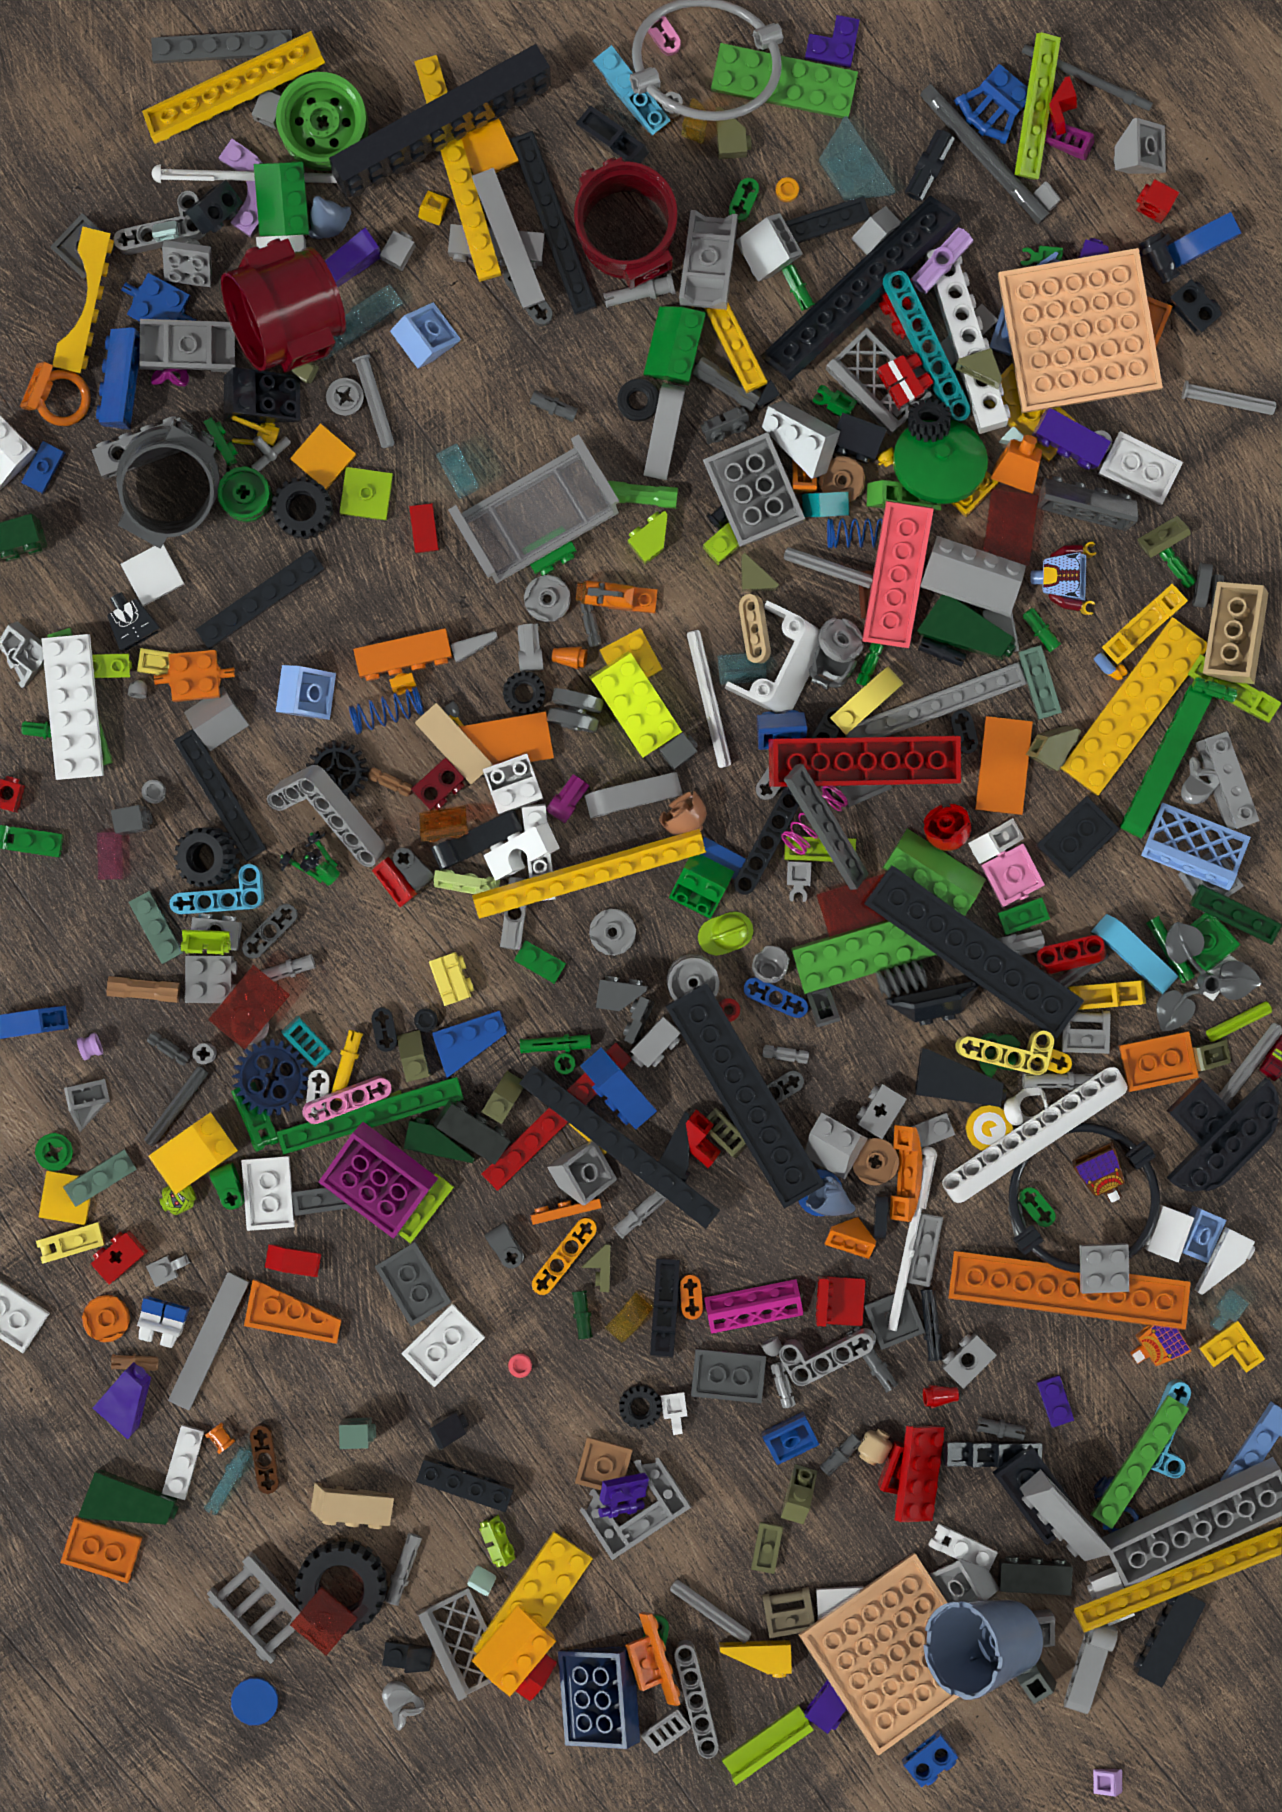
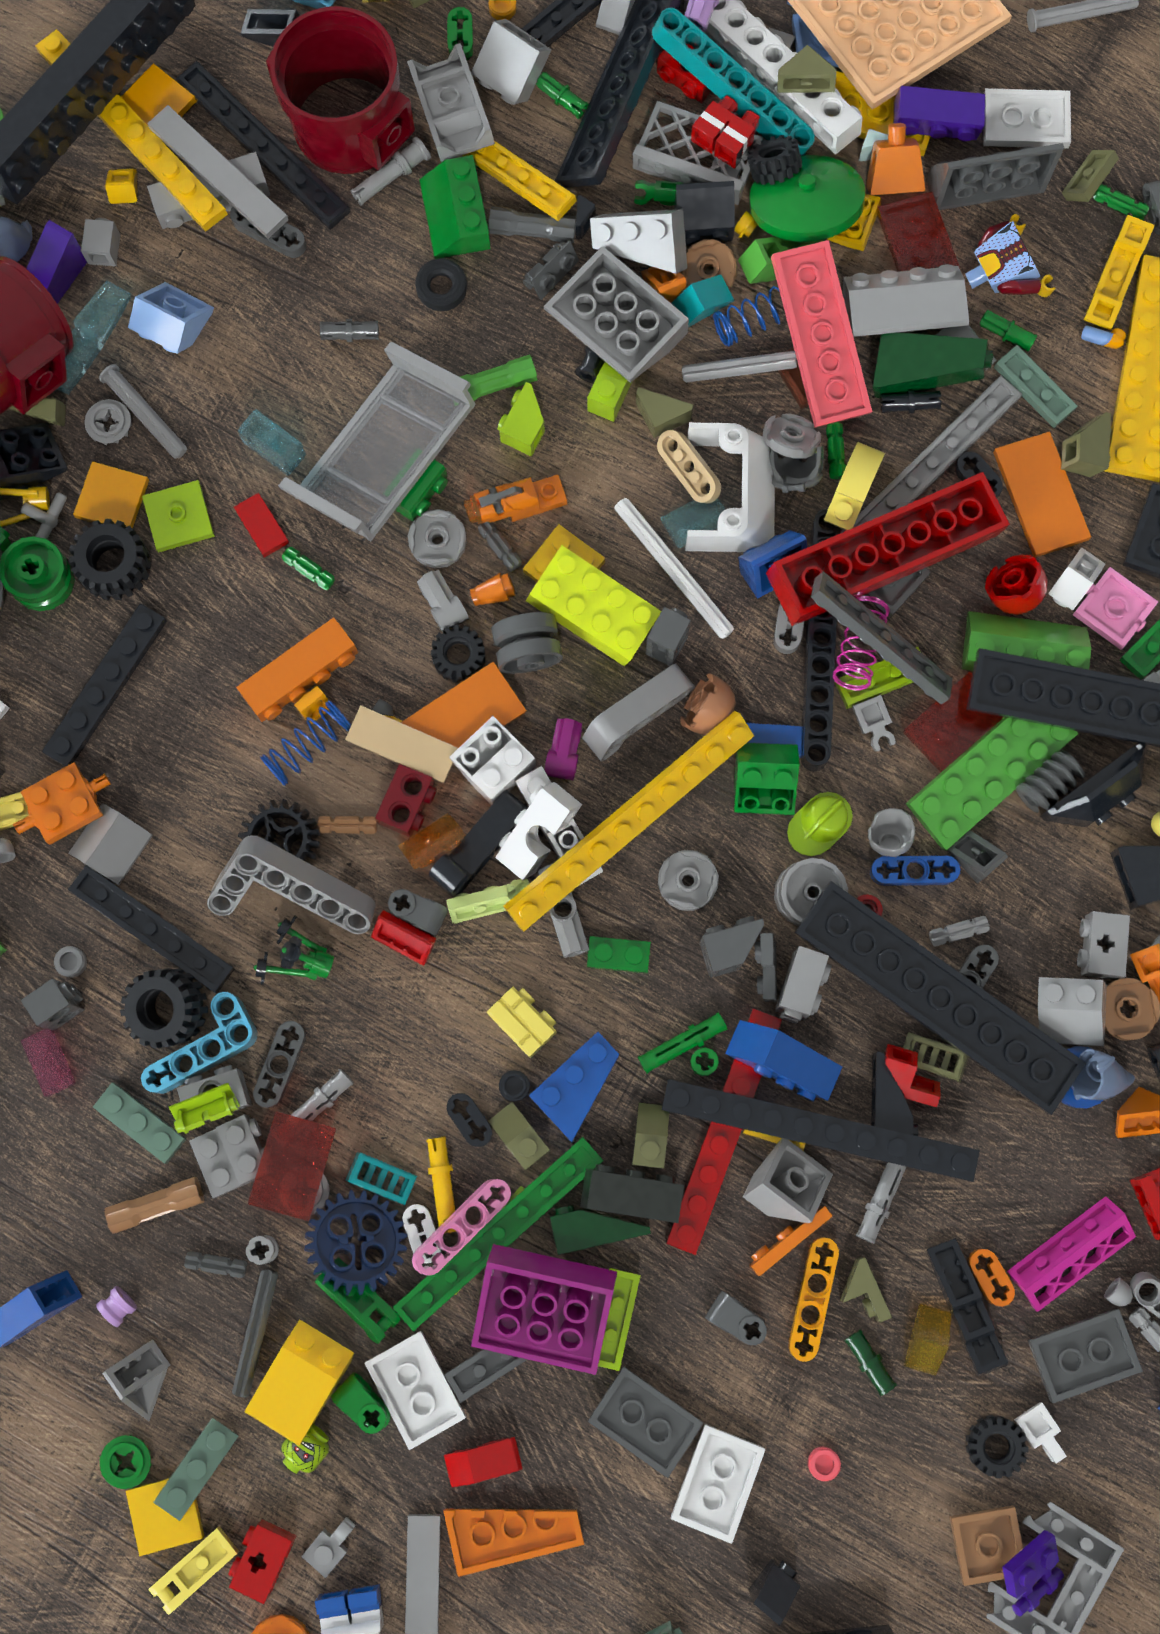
camera: 20 degrees left, 10 degrees down
(305, 692) = (202, 764): light blue slope -> none
(444, 577) = (308, 568): none -> green axle
(468, 647) = (370, 631): light grey slope -> none
(664, 431) = (486, 300): light grey beam -> none

